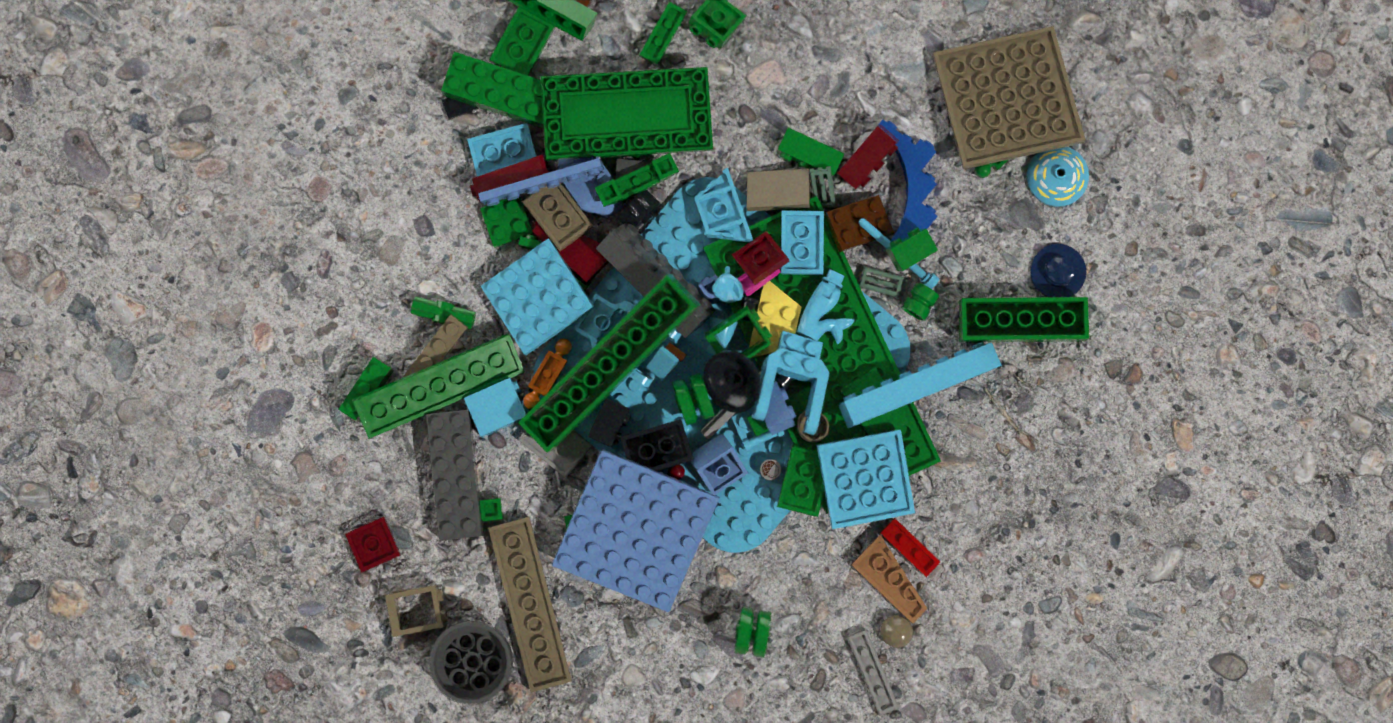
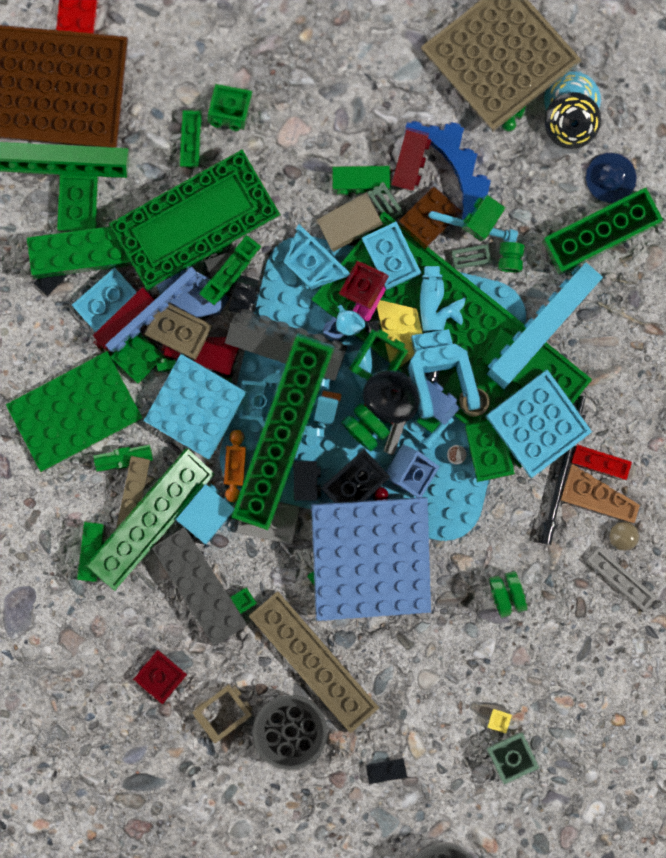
camera: 25 degrees left, 0 degrees up
(418, 244) = (74, 411): none -> green plate
(828, 584) = (550, 524): none -> black bar
(1046, 182) = (563, 111): none -> black dish

